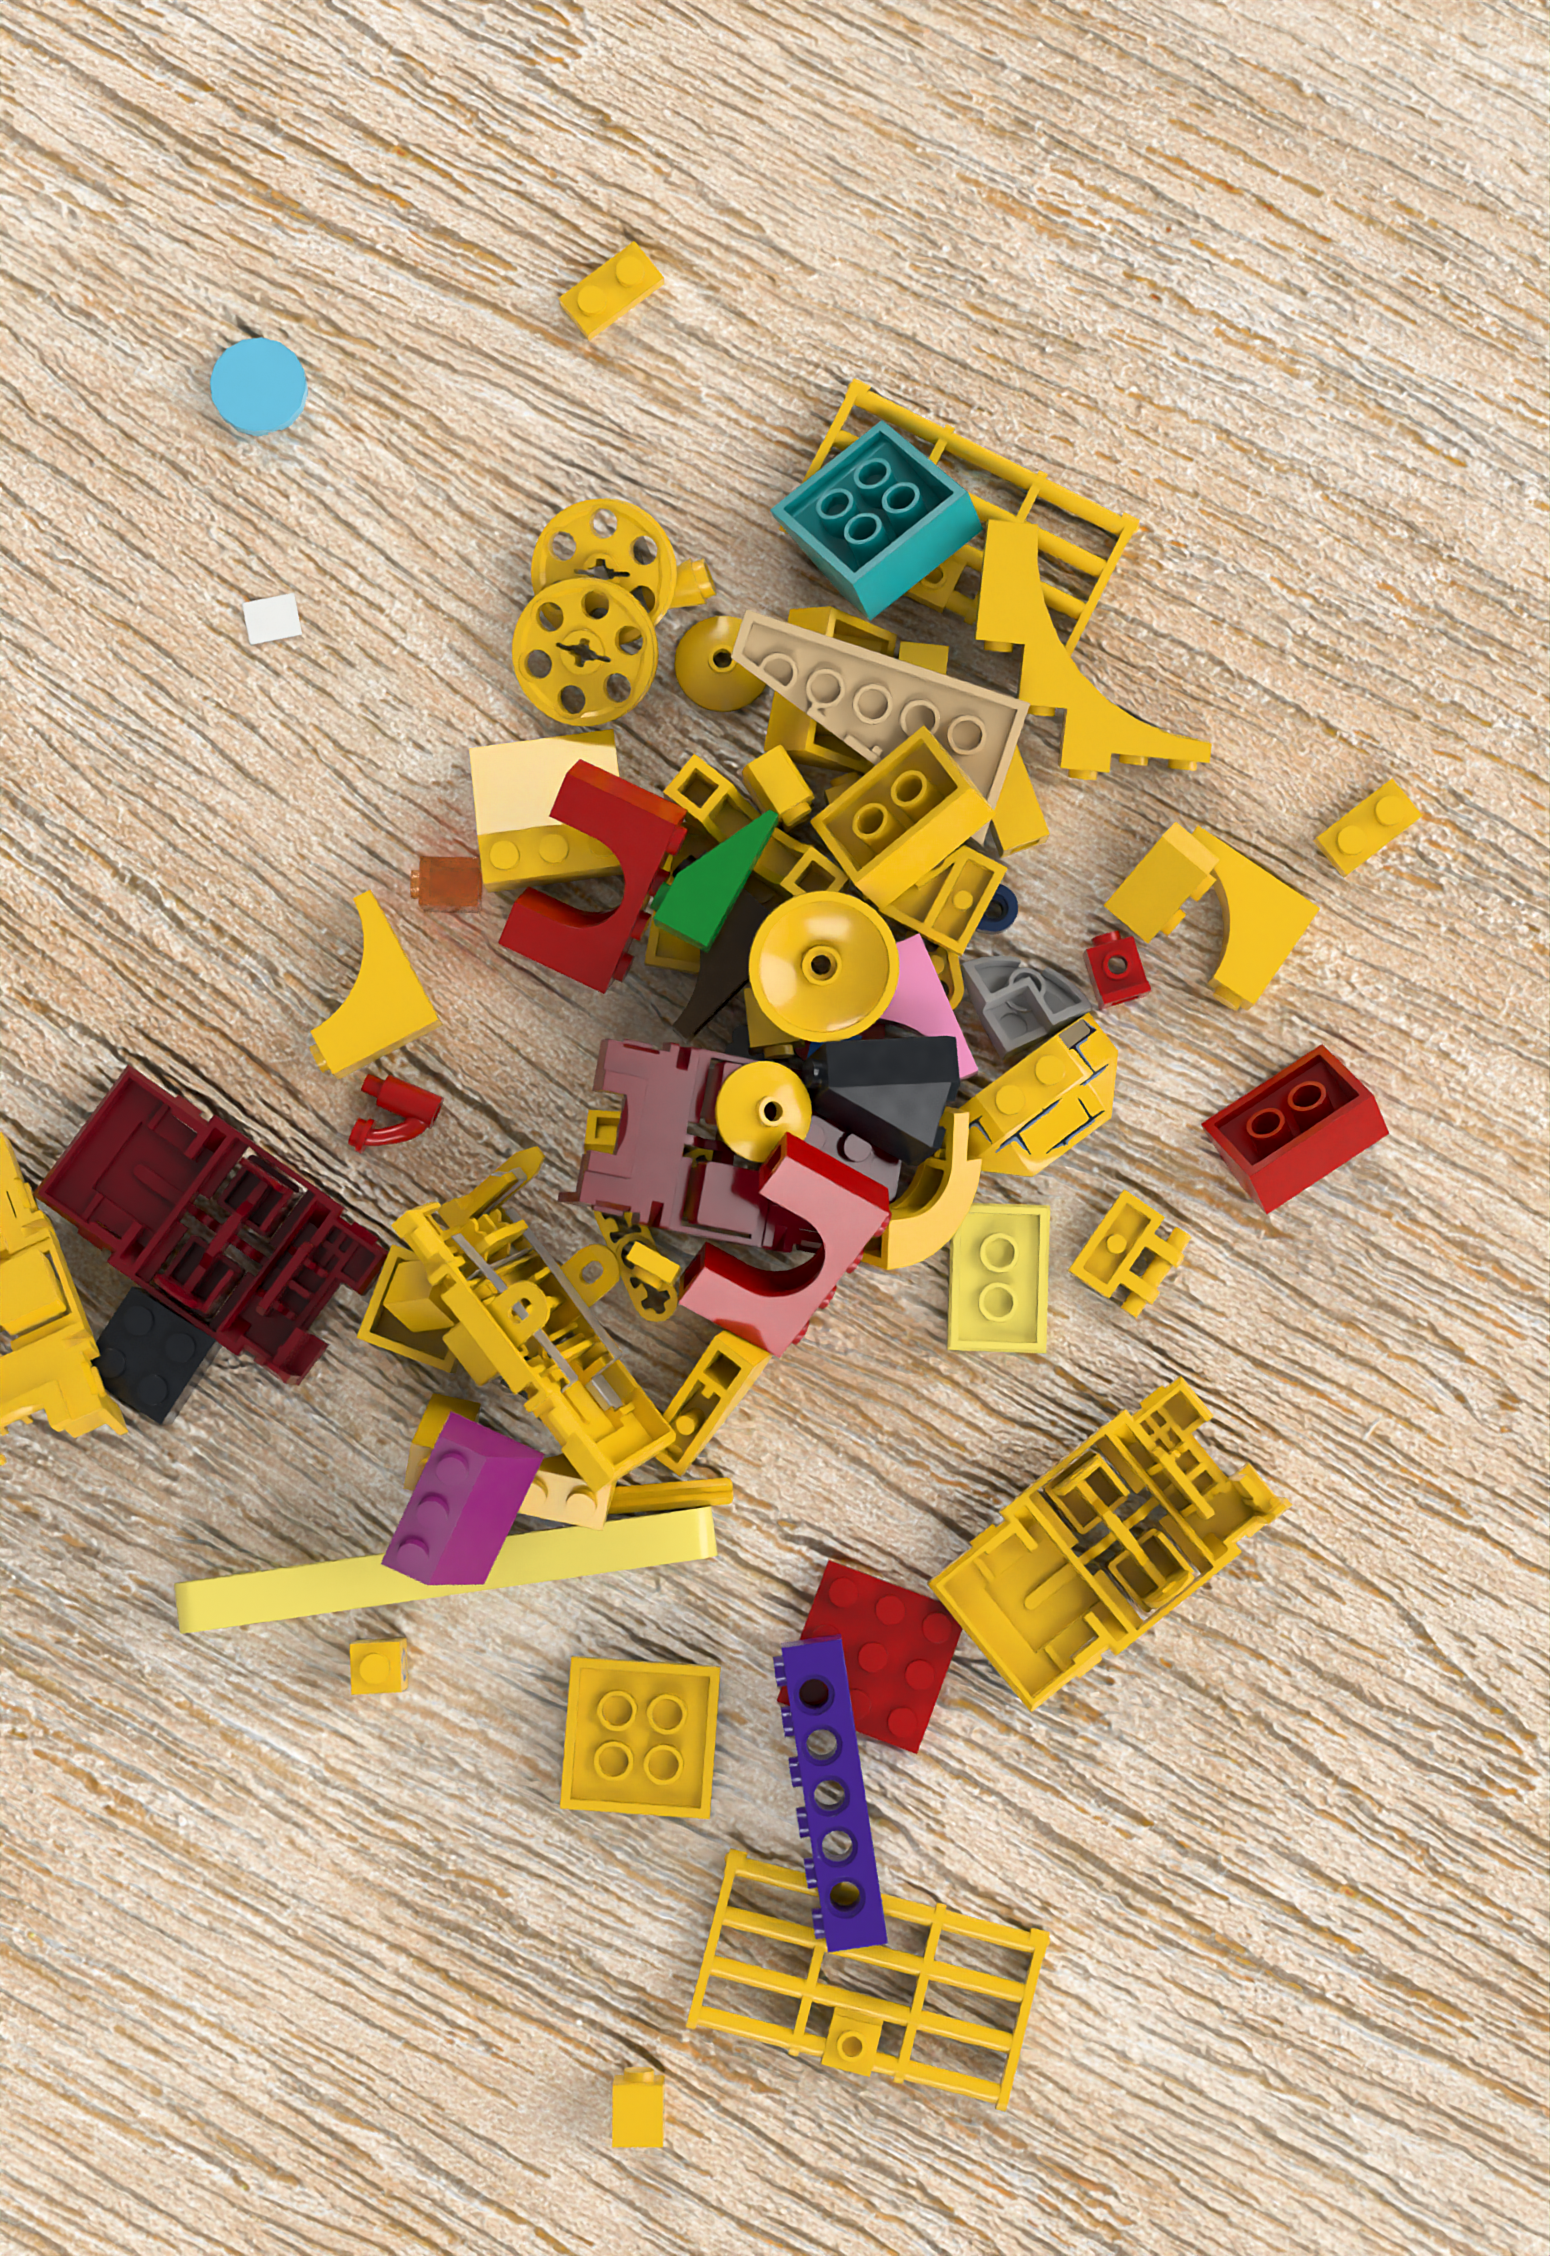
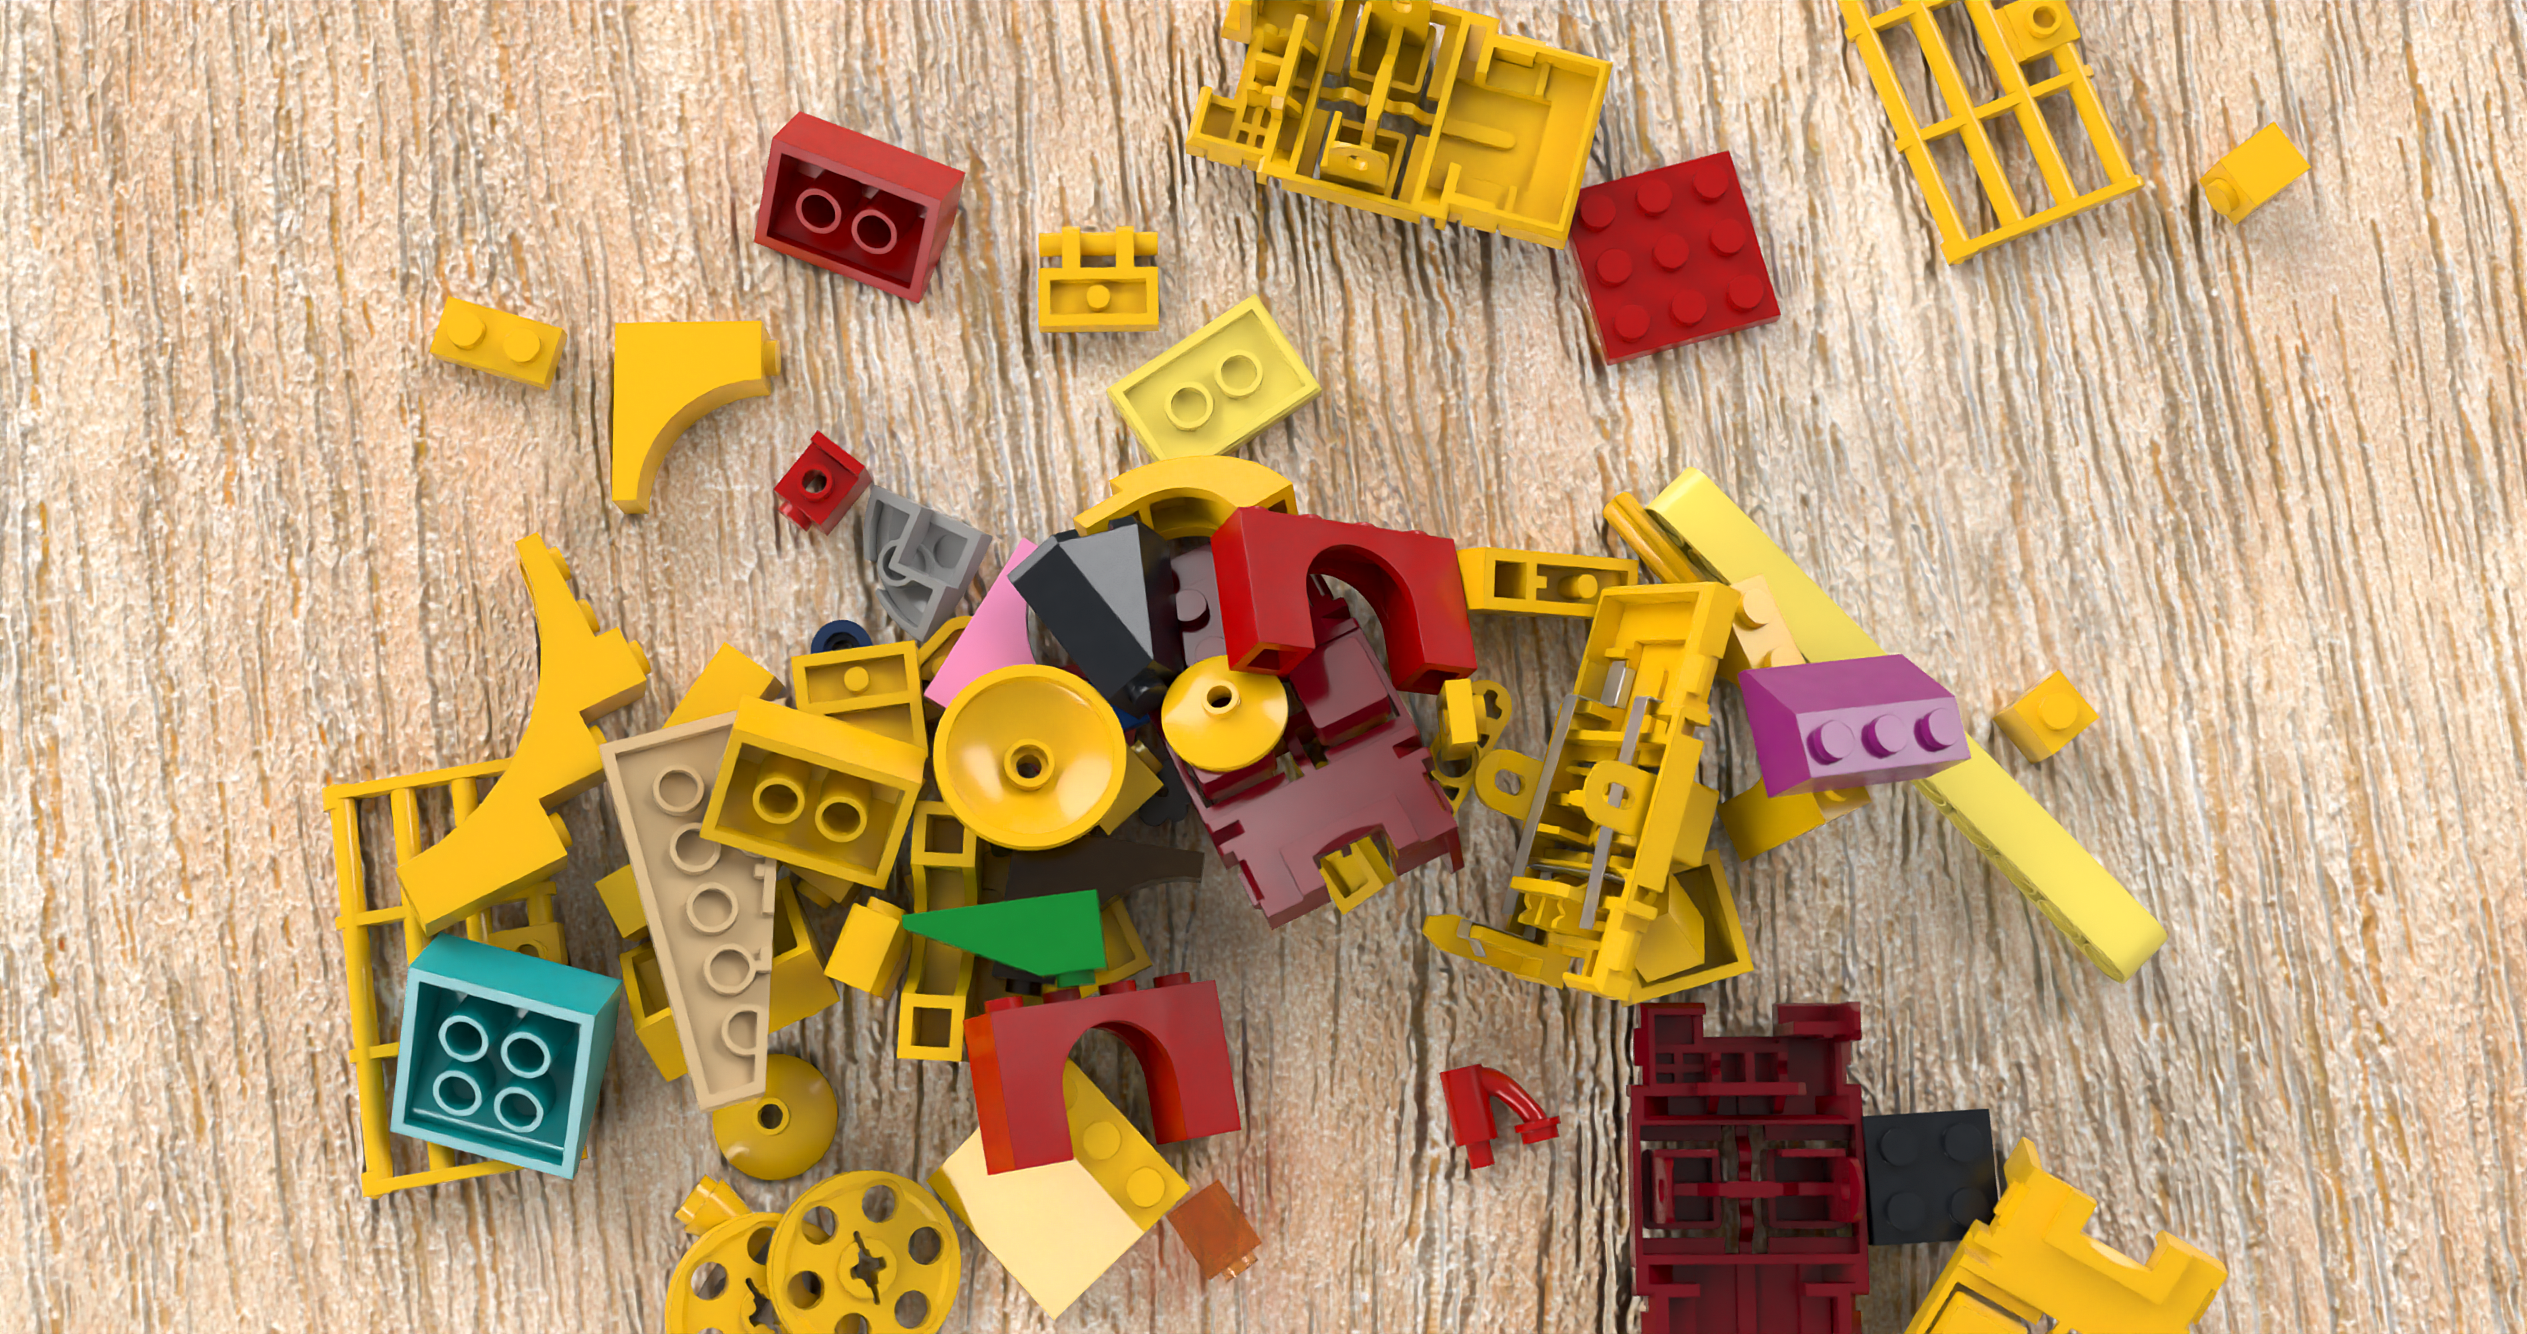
camera: 130 degrees left, 5 degrees down
(384, 1005) = (1388, 1204): yellow arch -> none
(640, 1737) = (1914, 418): yellow plate -> none
(863, 1920) = (1927, 84): dark purple brick -> none
(1044, 1102) = (1003, 463): yellow wedge -> none
(1162, 882) = (697, 492): yellow brick -> none

